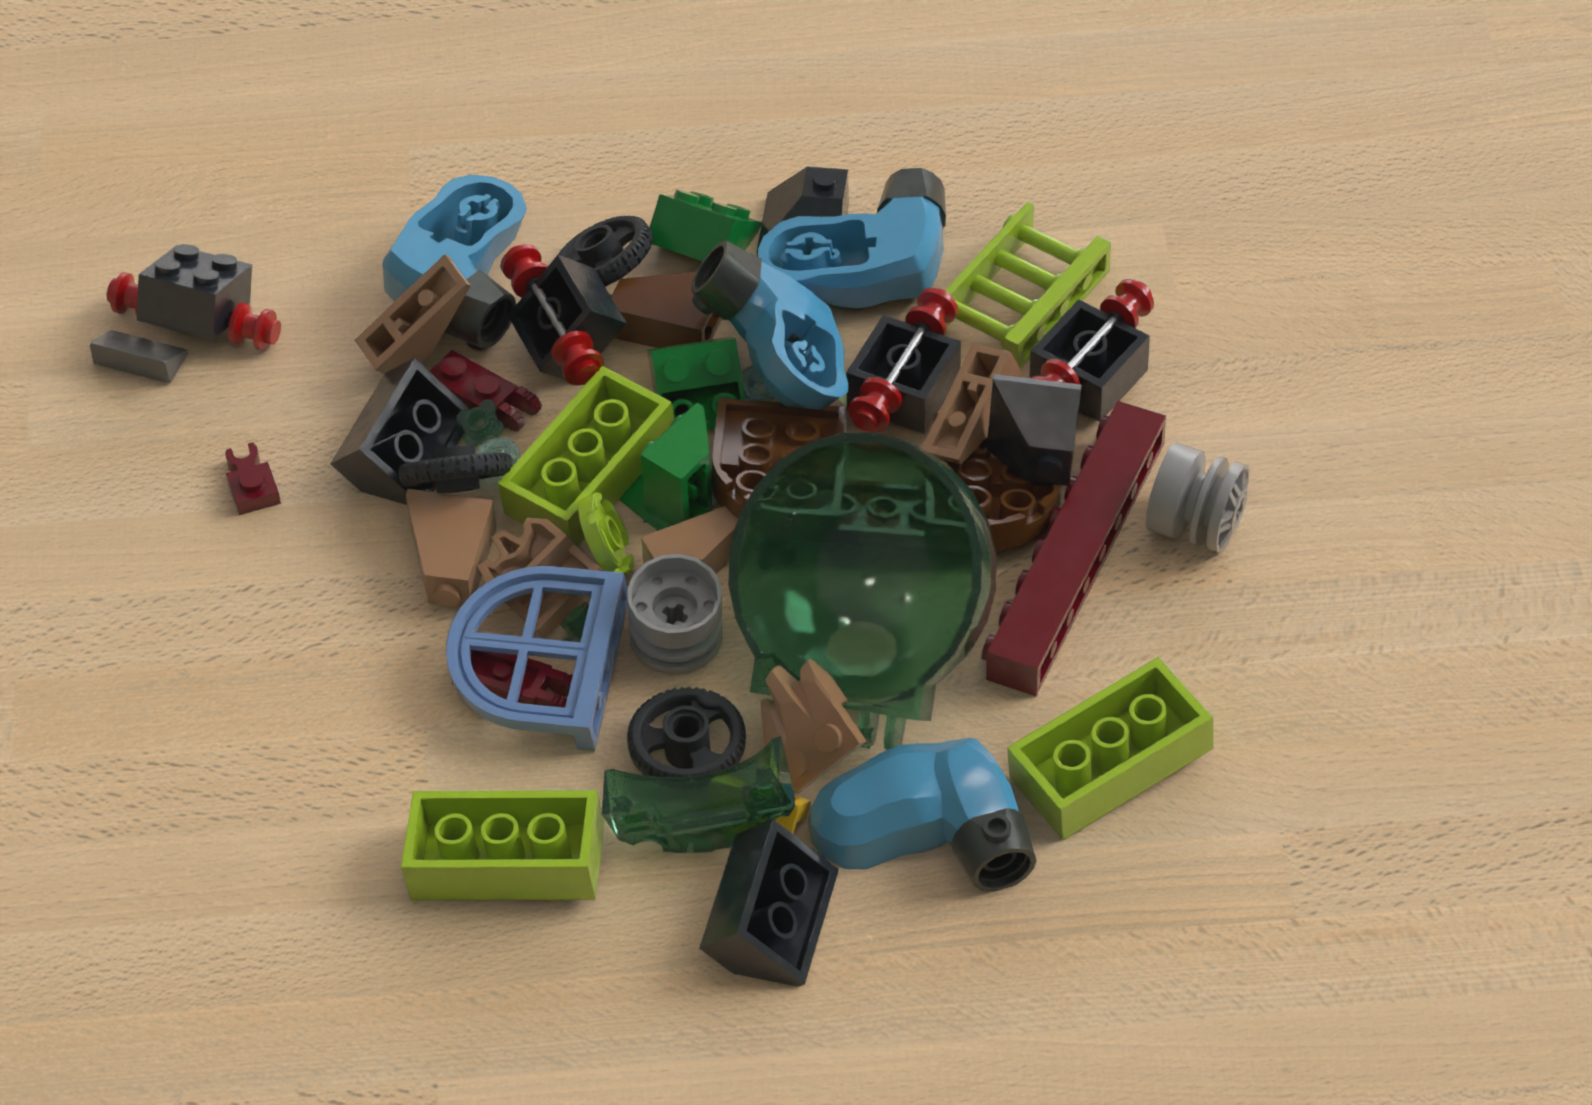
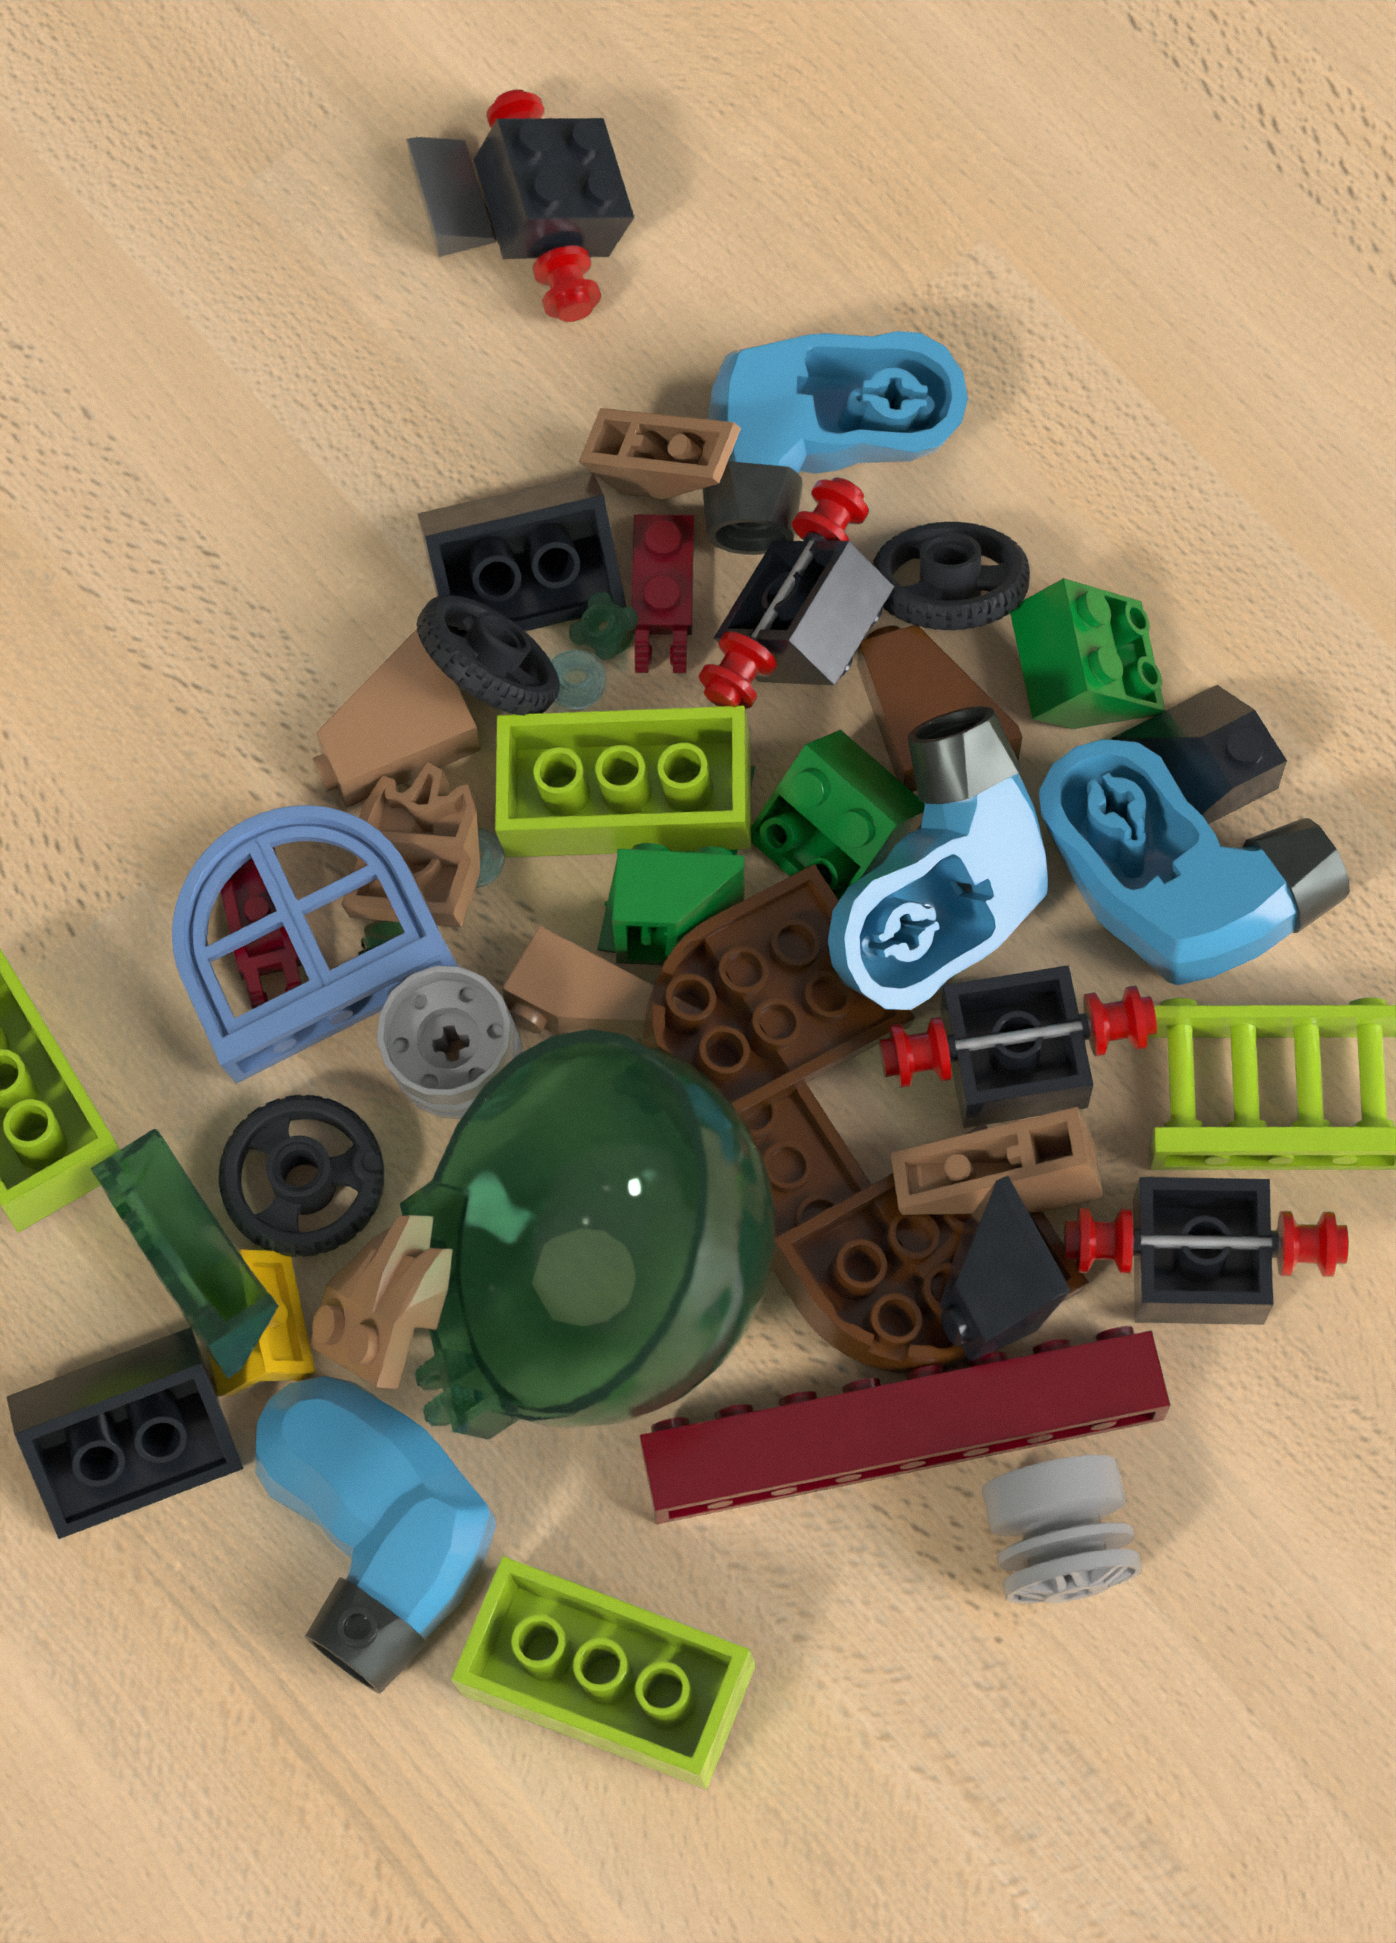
camera: 55 degrees right, 20 degrees up
(251, 482) = (353, 450): dark red plate -> none
(605, 534) = (512, 885): lime plate -> none

